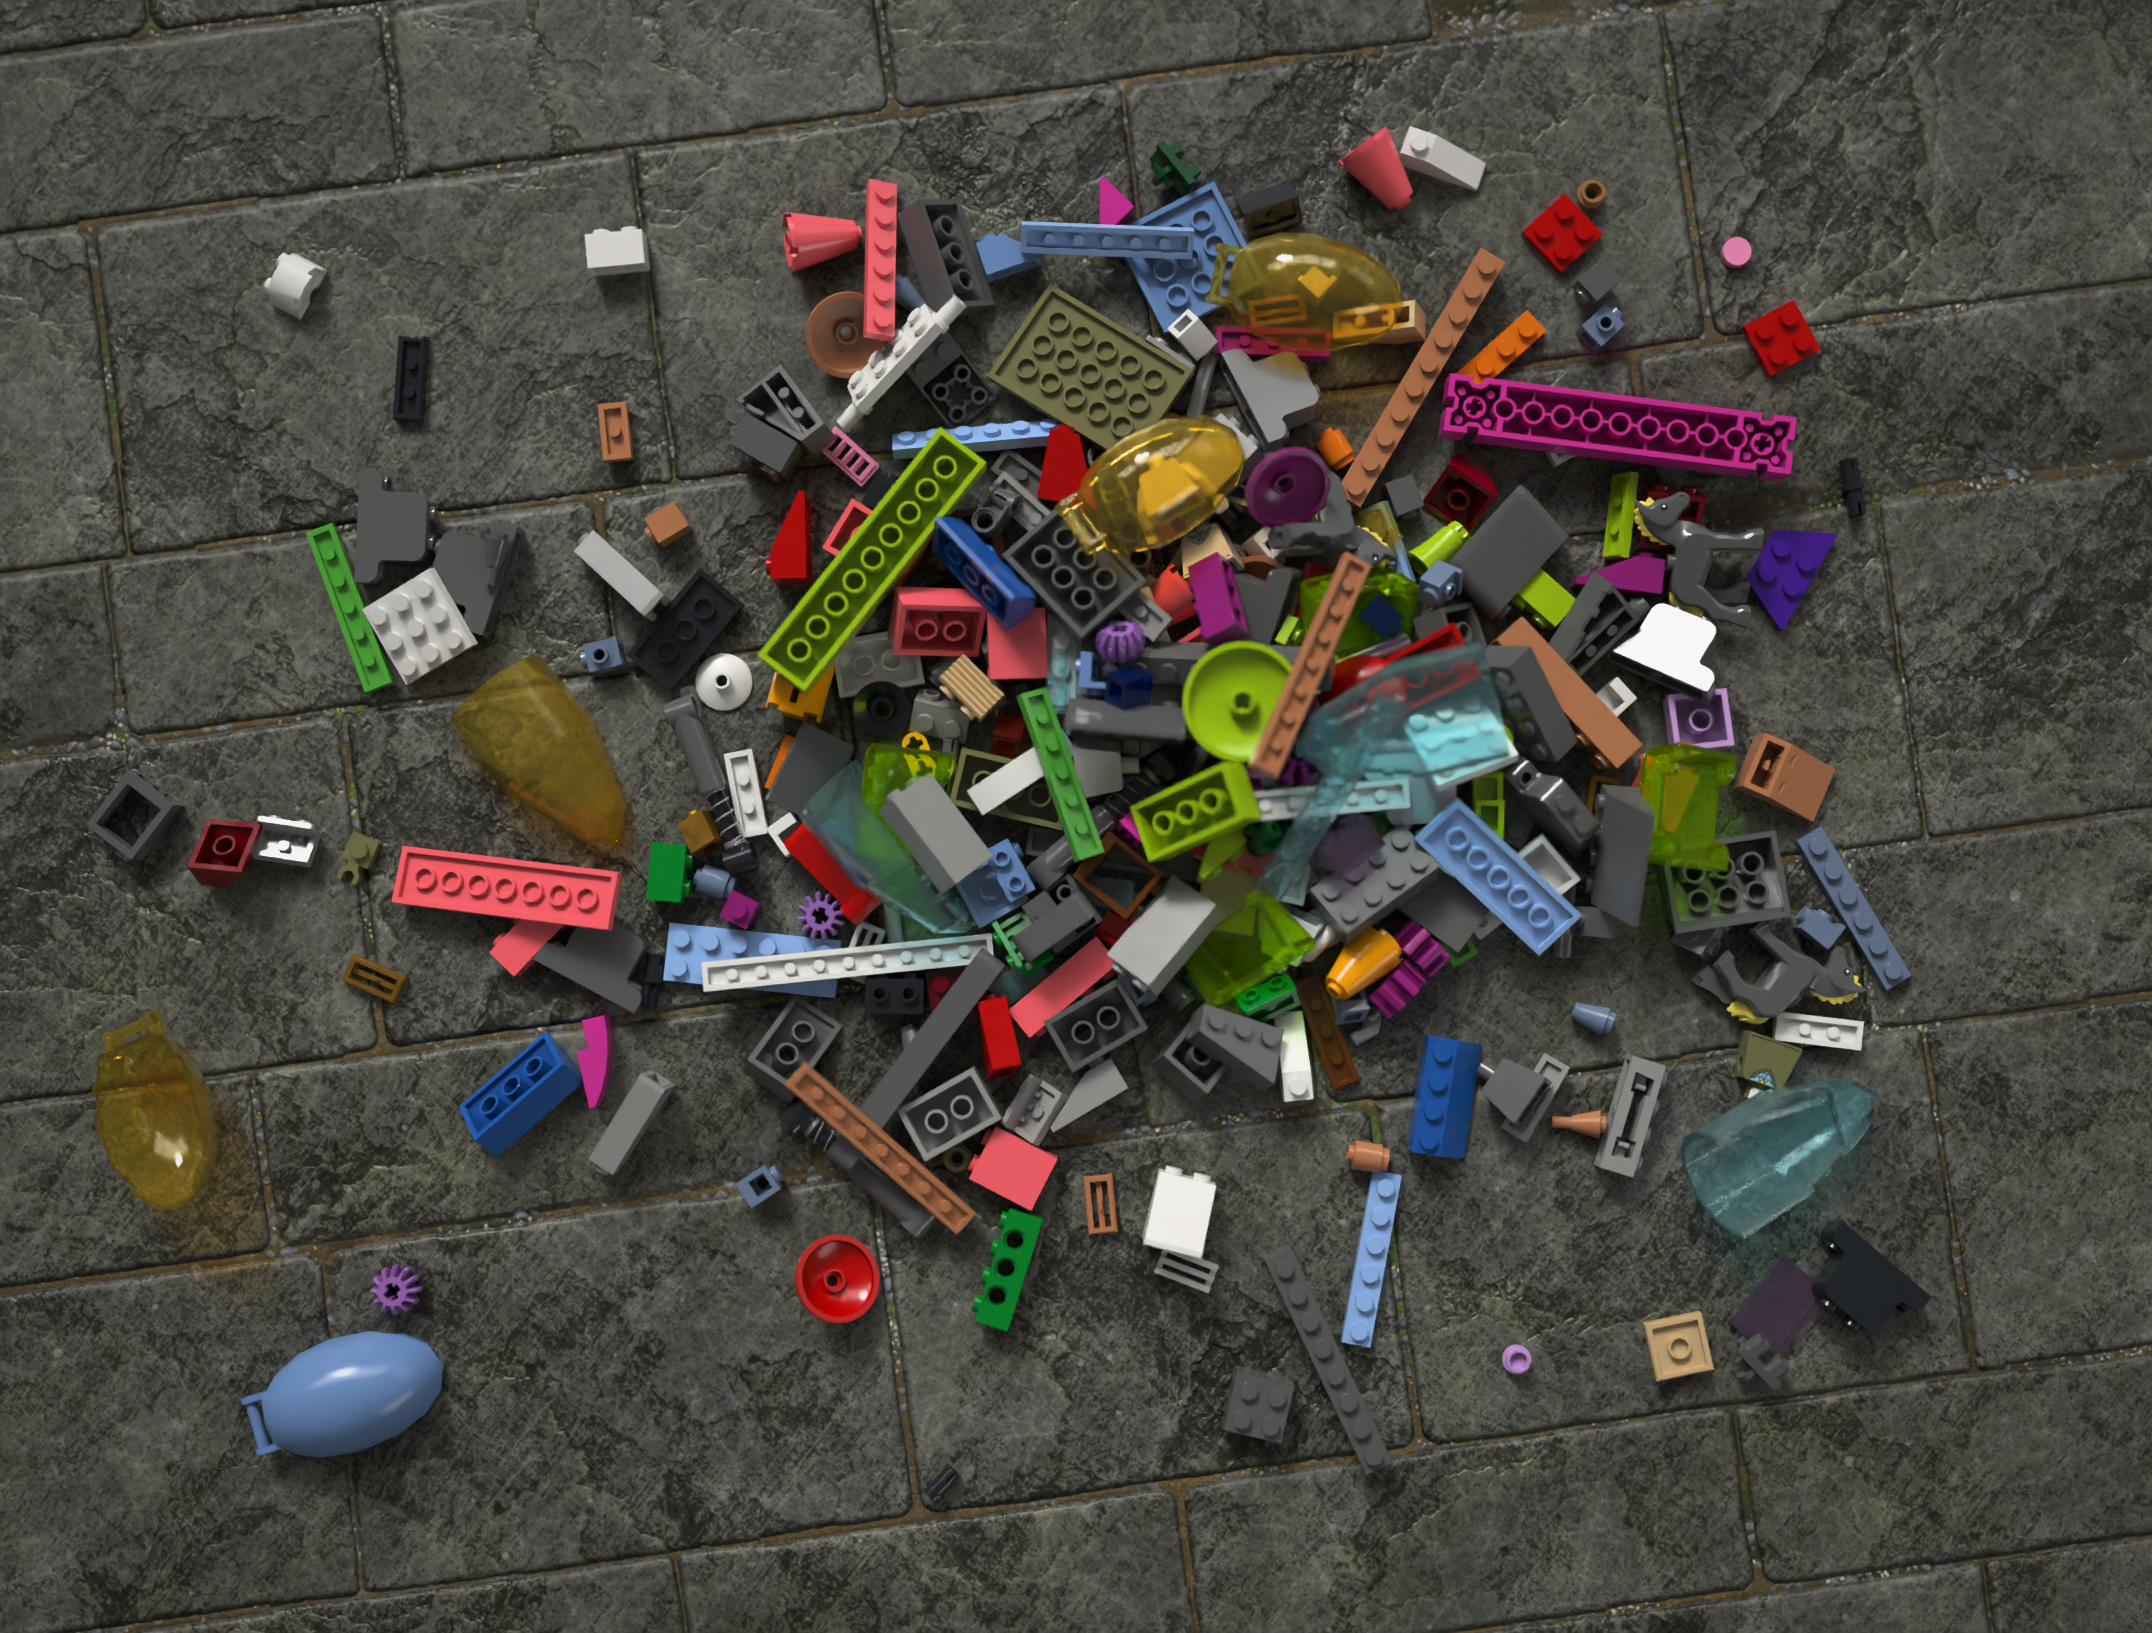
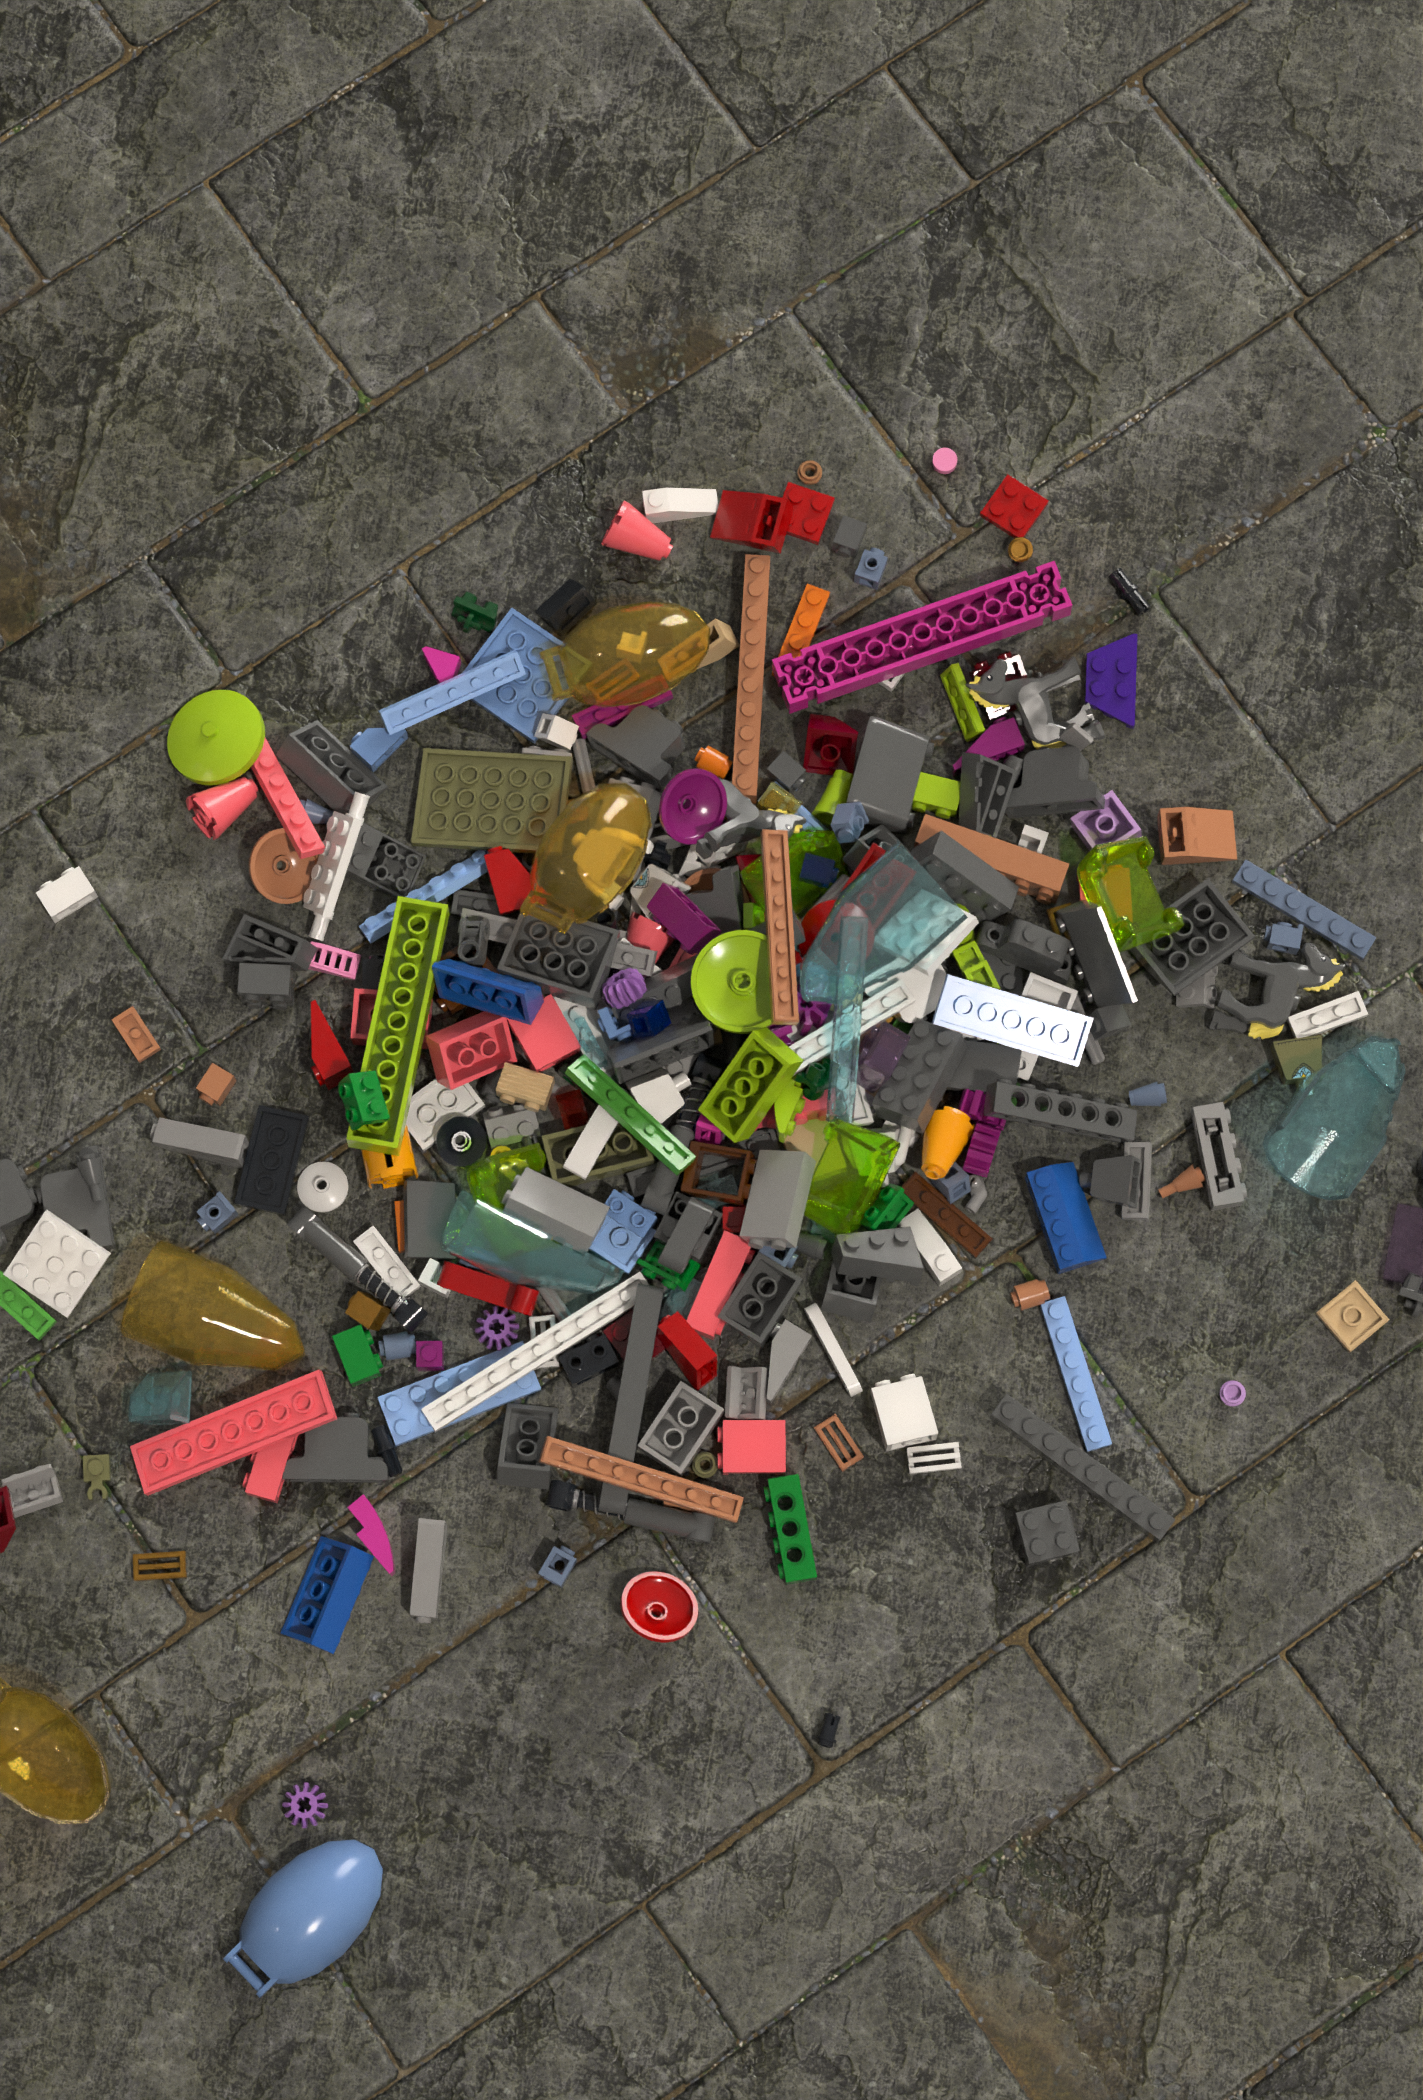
camera: 30 degrees left, 10 degrees down
(454, 816) = (162, 1399): none -> clear light blue slope
(794, 623) = (363, 1099): none -> green bracket
(846, 165) = (216, 737): none -> lime dish
(1142, 1110) = (833, 1349): none -> white beam
(1439, 957) = (999, 1105): none -> dark grey brick
(1507, 214) = (752, 520): none -> red slope
(1720, 613) = (1076, 736): none -> light grey slope
(1764, 385) = (1020, 549): none -> pearl gold plate

